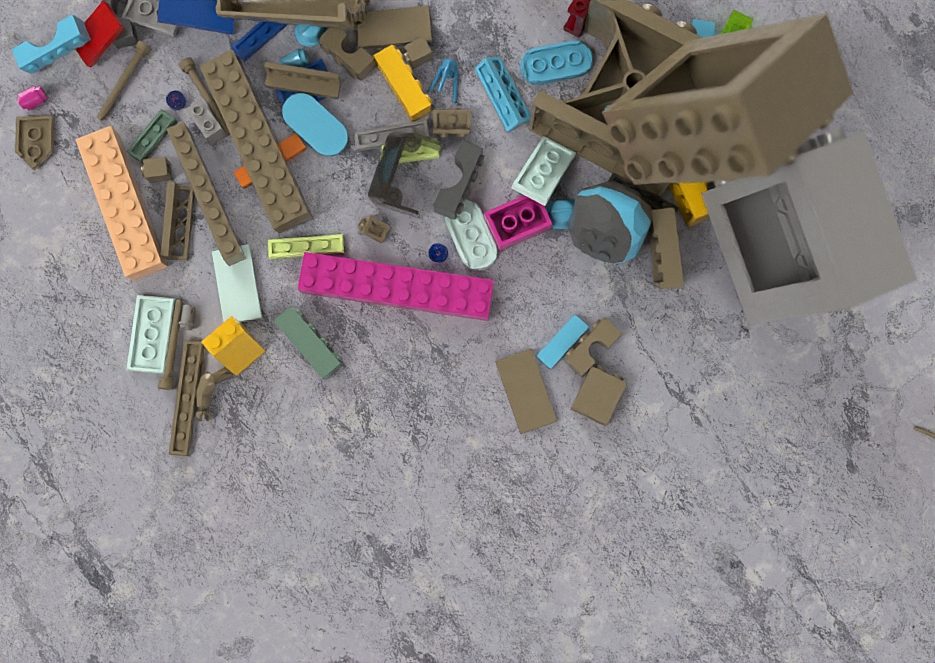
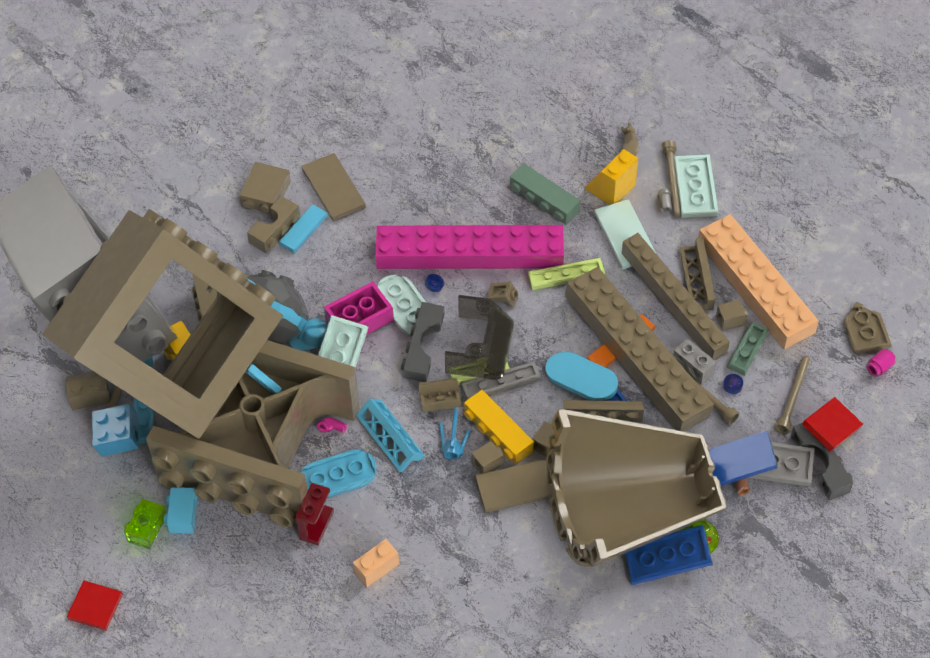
camera: 170 degrees right, 25 degrees down
(70, 35) = (893, 398): medium azure arch -> none
(186, 398) = (648, 144): dark tan tile -> none

